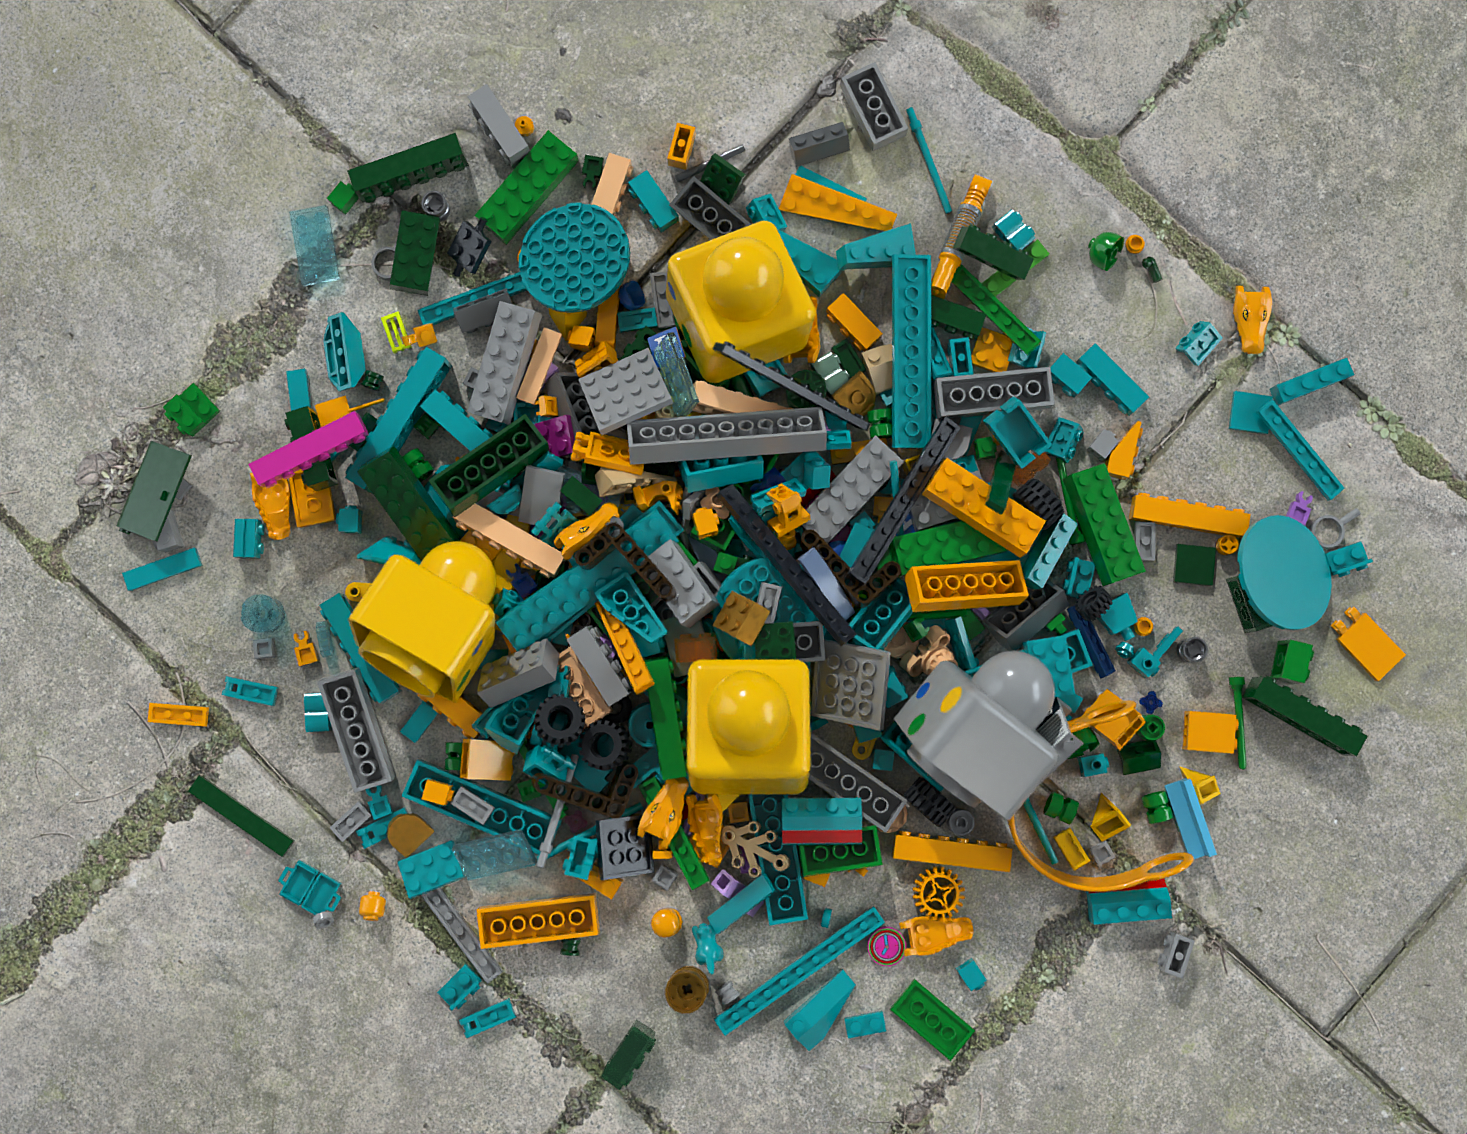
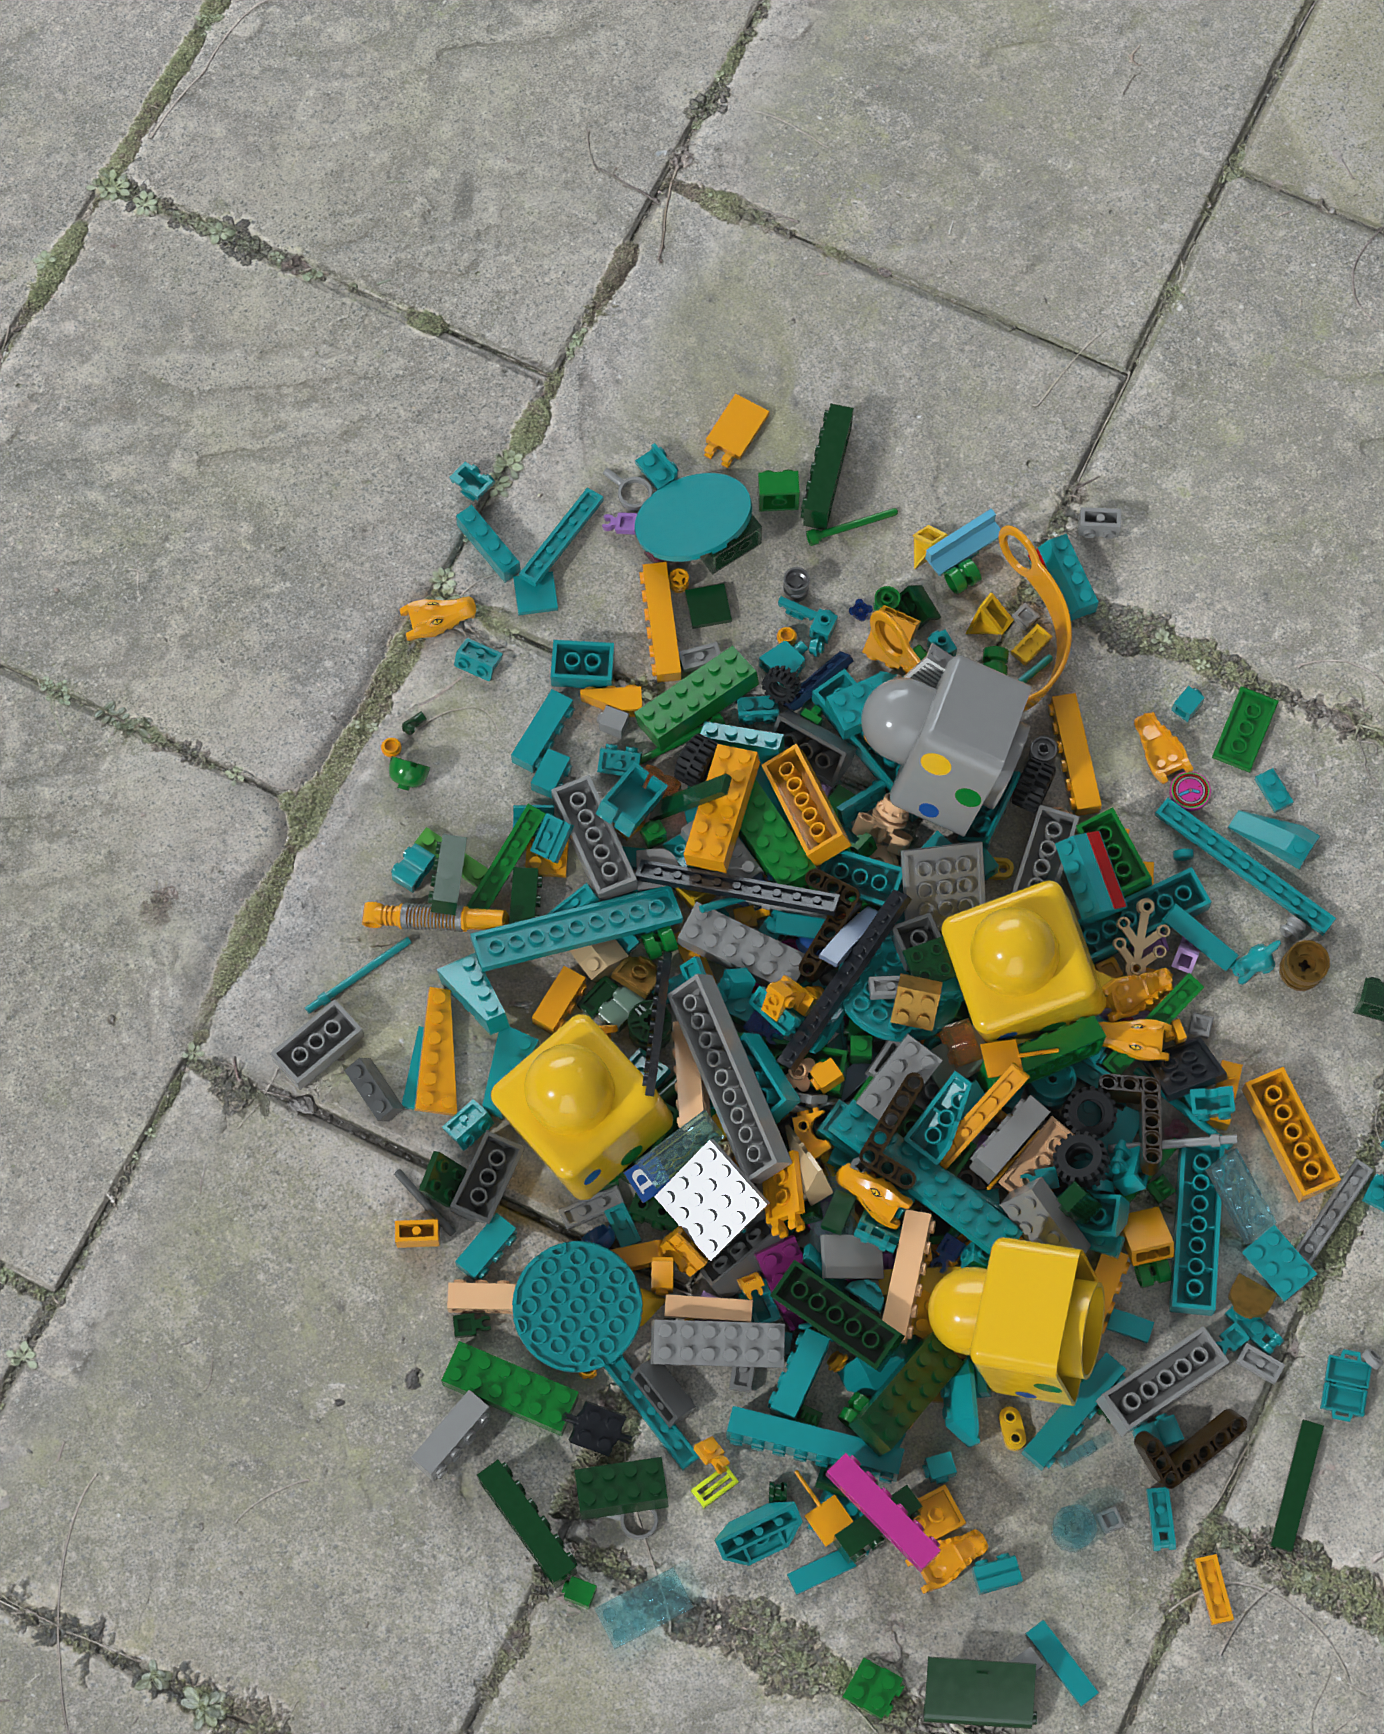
camera: 110 degrees left, 15 degrees down
(293, 737) = (1177, 1466): none -> dark brown beam
(306, 652) = (1098, 1470): light orange plate -> none
(372, 906) = (1339, 1312): light orange head -> none
(436, 205) = (560, 1482): flat silver wheel -> none
(438, 792) = (1198, 1269): light orange brick -> none
(472, 805) = (1198, 1230): light grey plate -> none
(522, 705) = (1078, 1203): none -> dark green brick
(524, 126) = (434, 1412): light orange tile -> none
(570, 947) = (1307, 1095): dark green wheel -> none
(666, 923) = (1245, 1008): light orange helmet -> none
(668, 681) = (1002, 1054): none -> light orange piece
(882, 759) = (1006, 844): teal brick -> none
(946, 889) = (1129, 768): light orange gear -> none
(960, 356) = (566, 881): teal brick -> none
(1003, 355) = (552, 838): none -> teal plate
(1166, 432) = (582, 664): none -> teal brick
(1210, 732) = (872, 548): light orange brick -> none
(1380, 383) = (471, 481): none -> teal cylinder

